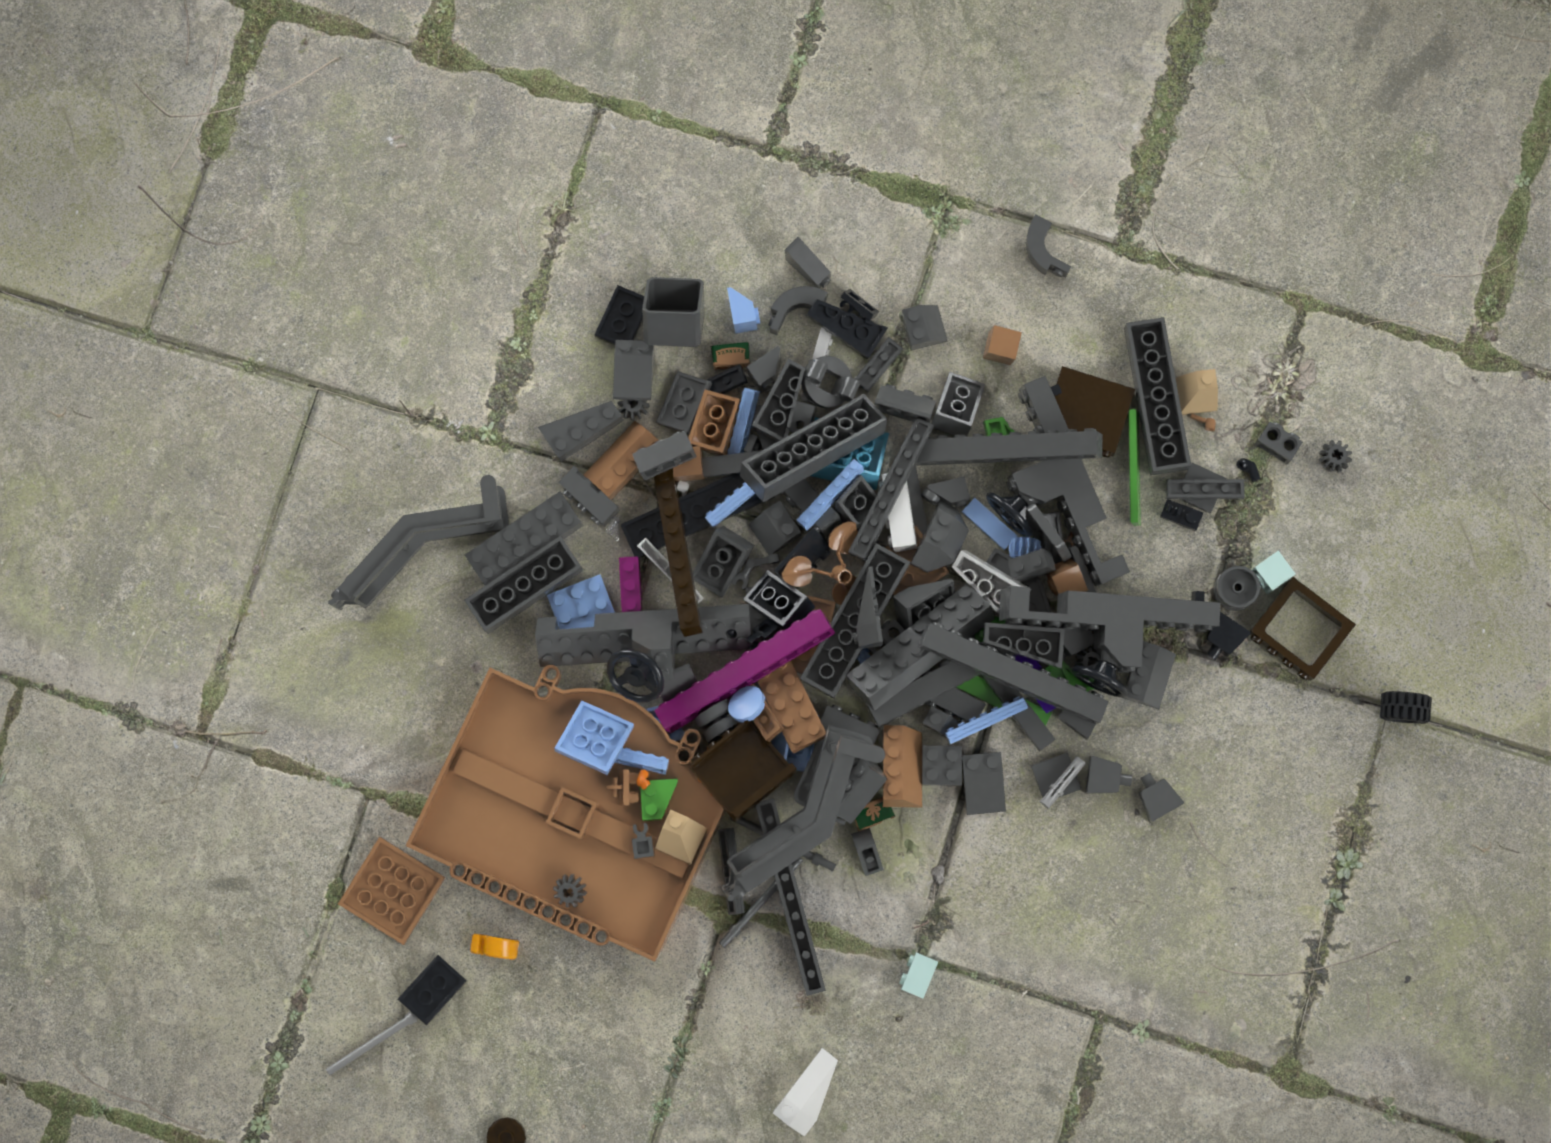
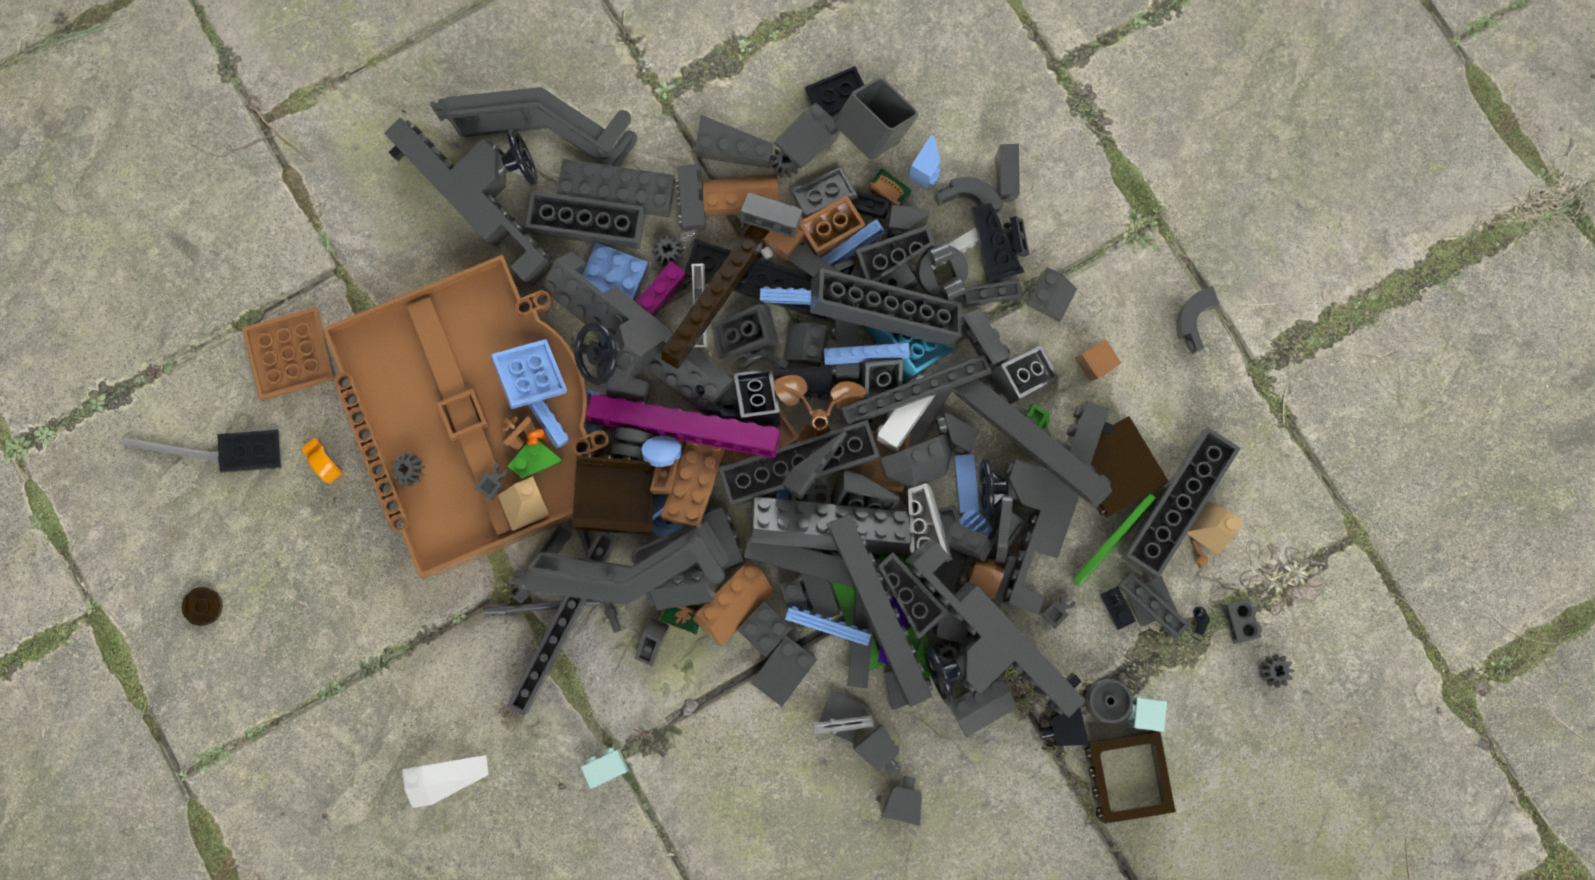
camera: 30 degrees right, 0 degrees up
(415, 635) = (474, 185): none -> dark grey piece
(601, 549) = (665, 245): none -> dark grey gear
(1141, 559) = (1055, 613): none -> dark grey plate

